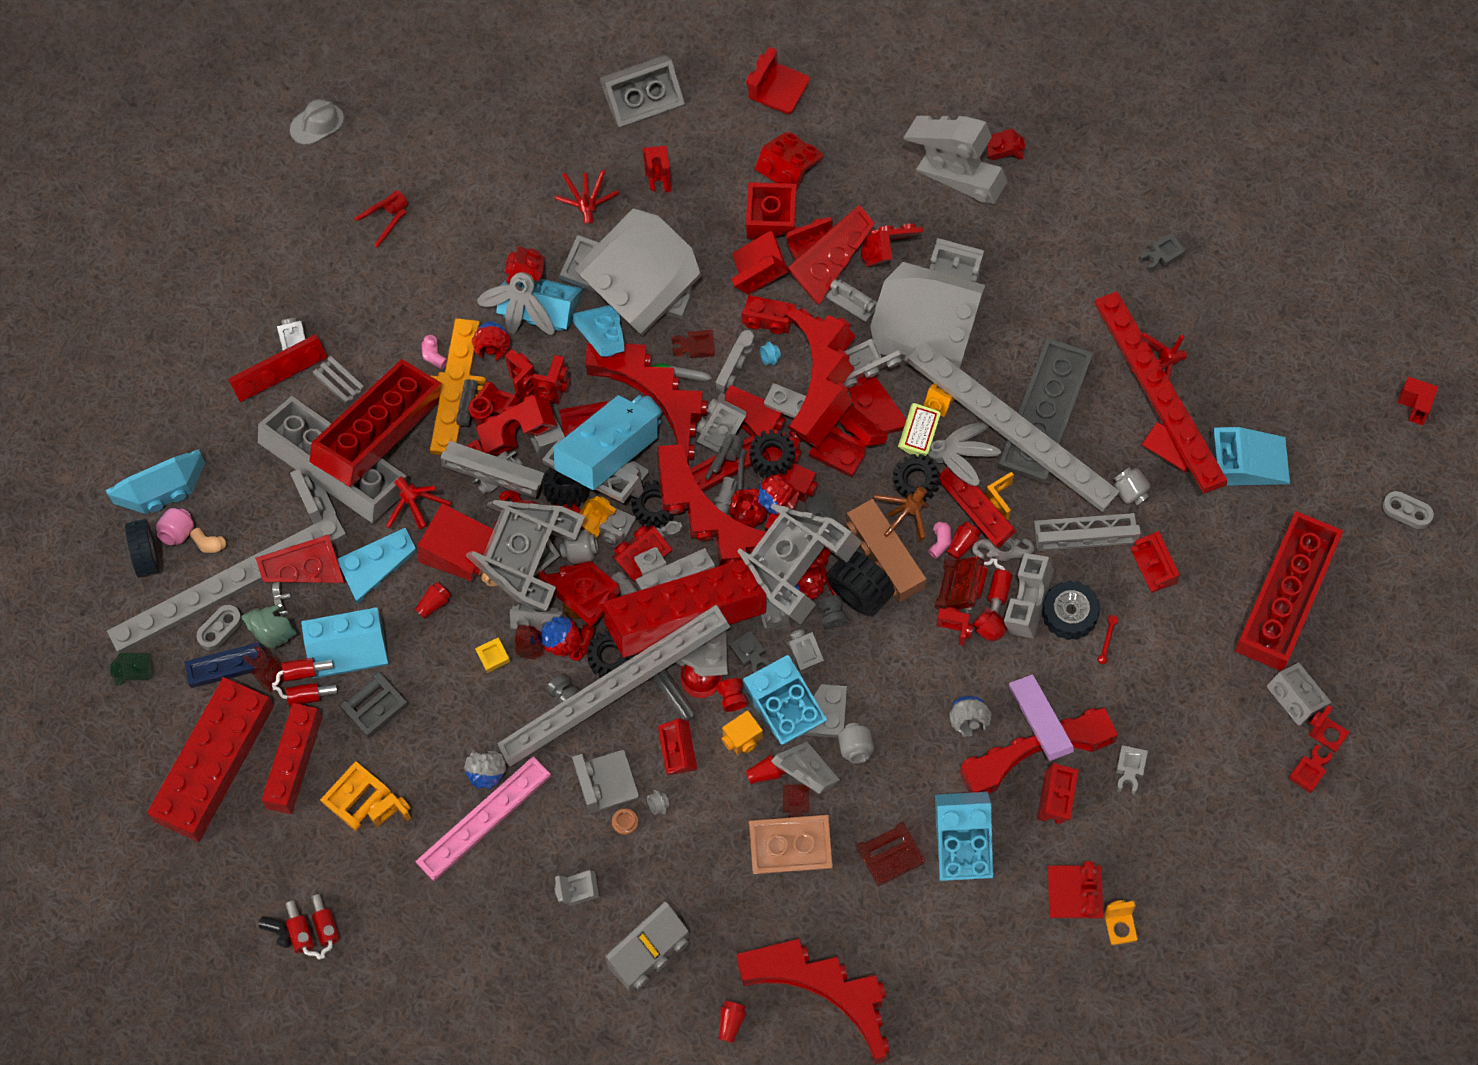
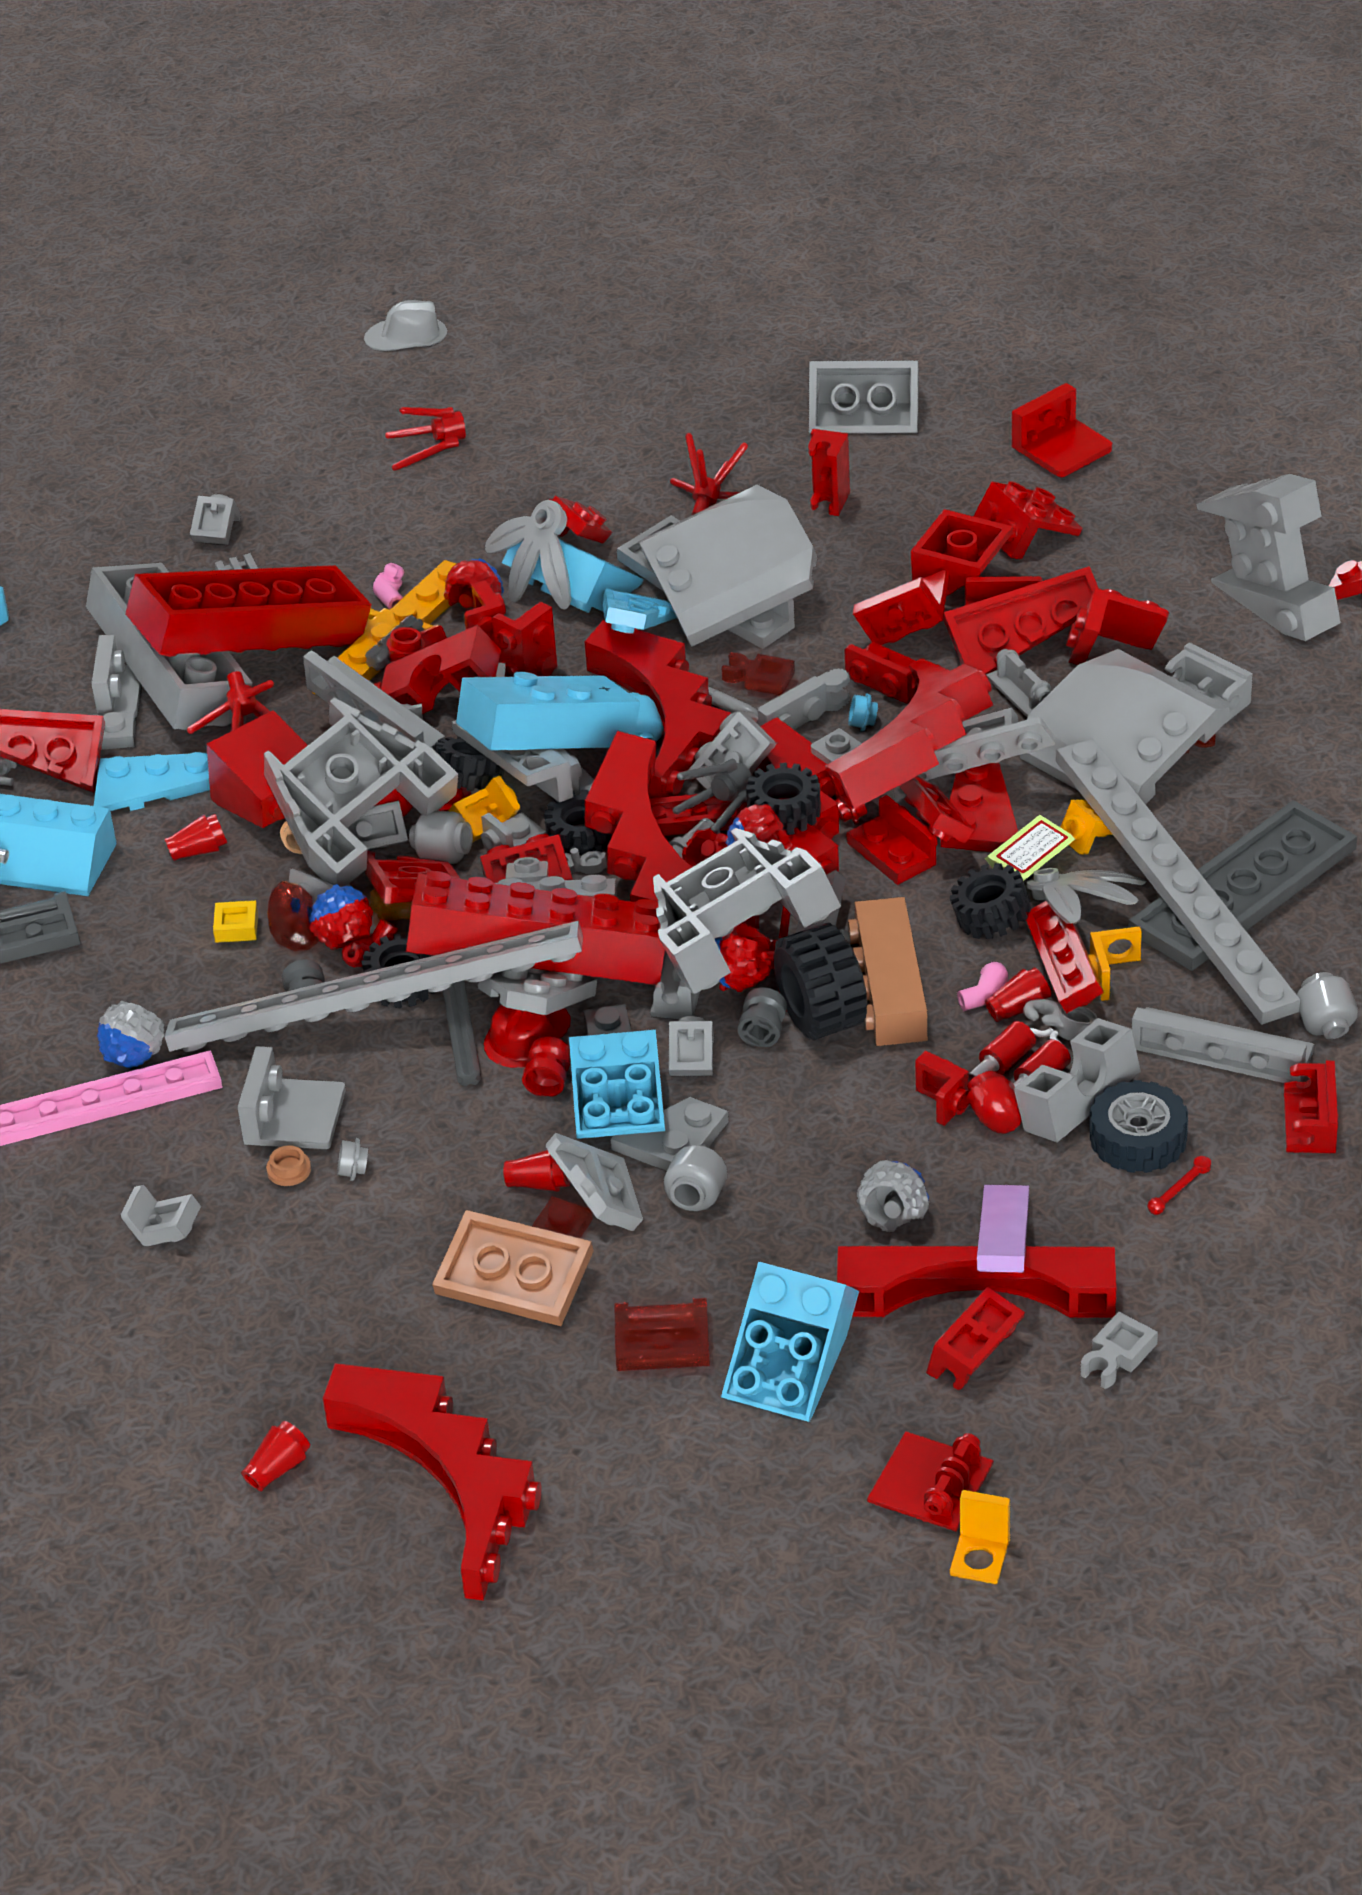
camera: 25 degrees right, 25 degrees down
(277, 368) = (171, 543): red plate -> none
(648, 947) = (209, 1309): light grey slope -> none
(677, 747) = (428, 1108): red slope -> none
(742, 734) = (529, 1114): light orange brick -> none
(911, 505) = (958, 913): dark orange plant -> none
(965, 585) = (983, 1033): clear red plate -> none

